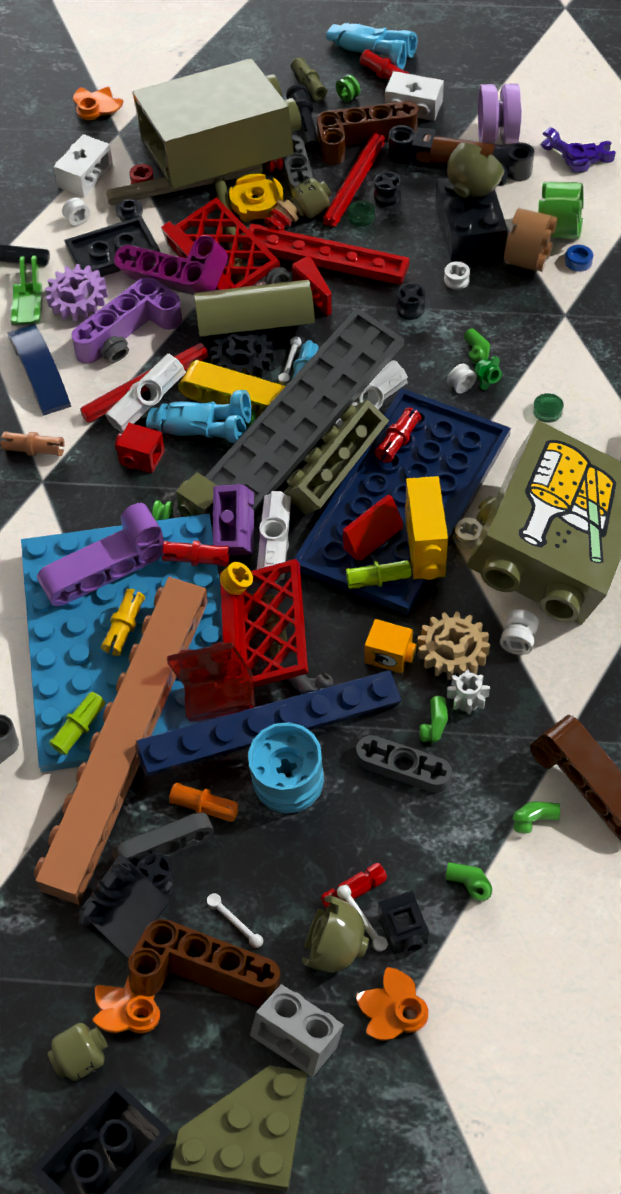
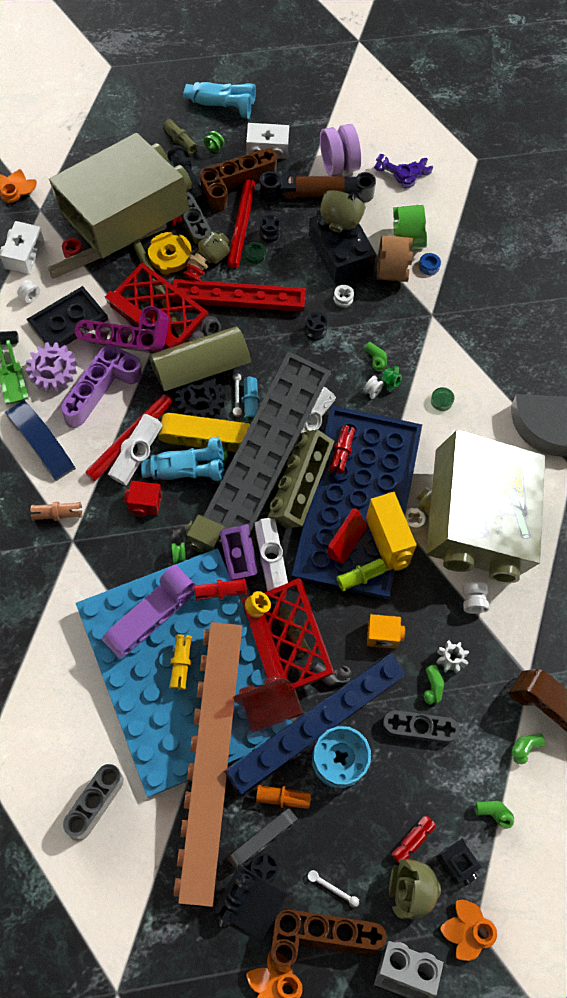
camera: 20 degrees left, 10 degrees up
(77, 723) = (170, 757): lime axle -> none
(115, 349) = (97, 412): dark grey plate -> none
(129, 209) = (71, 286): black plate -> none
(306, 270) = (230, 317): red slope -> none
(379, 943) = (443, 880): white hinge -> none
(381, 66) = (234, 117): red pin -> none
(453, 645) = (433, 609): tan gear -> none

